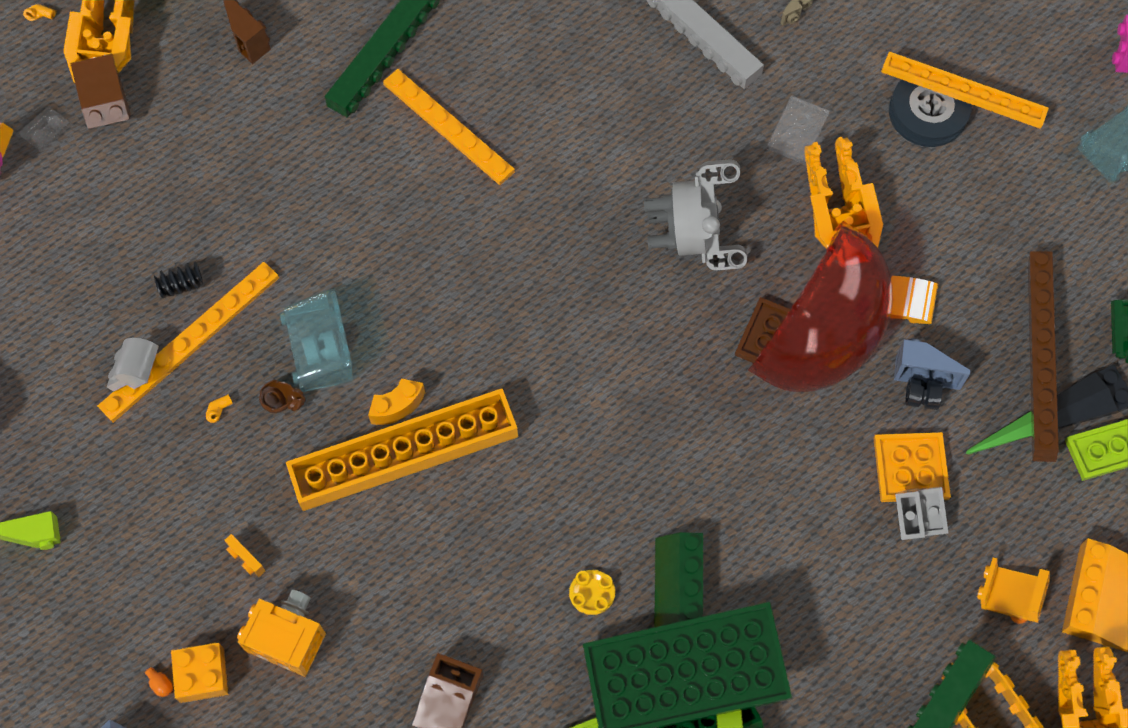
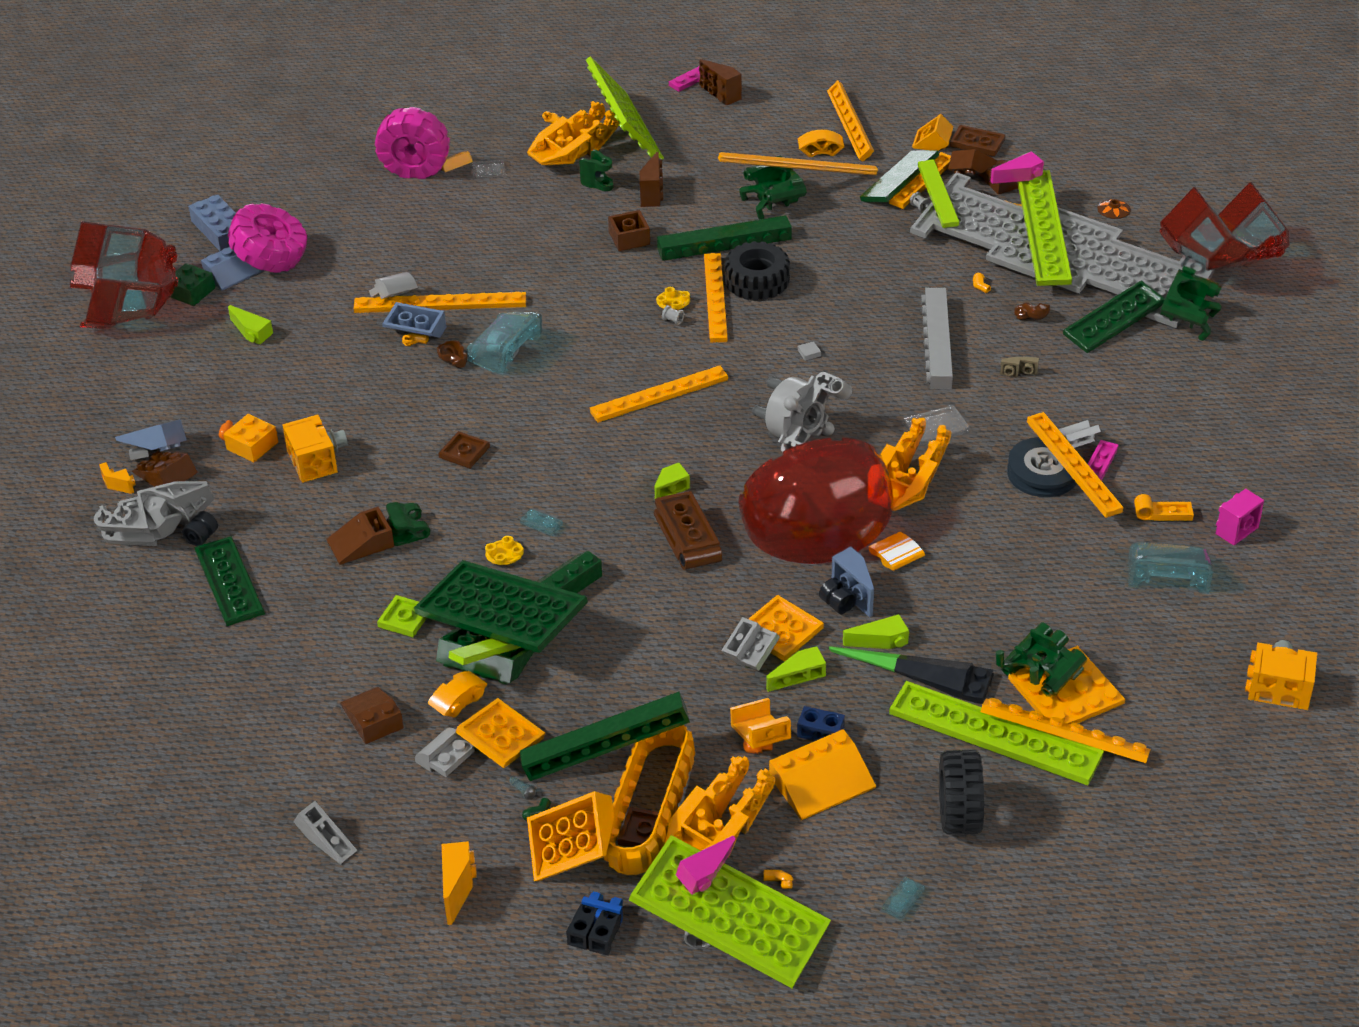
camera: 45 degrees right, 25 degrees down
(100, 91) = (534, 162): reddish brown slope -> none
(169, 56) = (593, 171): none -> dark green piece
(178, 280) = (468, 270): black piece -> none
(204, 391) = (416, 320): none -> sand blue slope
(237, 550) = (340, 403): light orange plate -> none
(285, 107) = (629, 230): none -> reddish brown brick
(396, 404) = (511, 395): light orange brick -> none
(402, 449) = (486, 415): light orange brick -> none
(414, 160) = (673, 298): none -> yellow dish
(421, 504) = (464, 449): none -> reddish brown plate
(437, 180) = (673, 315): none -> light grey bush
(462, 90) = (757, 270): none -> black tyre
(468, 648) = (404, 525): none -> dark green piece
(523, 287) = (658, 393): none -> light orange plate
(584, 527) = (541, 522): none -> clear light blue plate
(600, 126) = (809, 350): none -> light grey tile
(650, 381) = (672, 481): none -> lime slope
(747, 437) = (687, 530): none -> reddish brown hinge
(923, 46) = (1080, 433): none -> light grey brick
(961, 59) = (1102, 457): none -> dark pink plate
(973, 499) = (799, 668): none -> lime slope
(999, 400) = (880, 634): none -> lime slope
(1042, 357) = (941, 625): reddish brown brick -> none
(1055, 548) = (818, 723): none -> dark blue brick
(1064, 79) = (1162, 511): none -> light orange plate

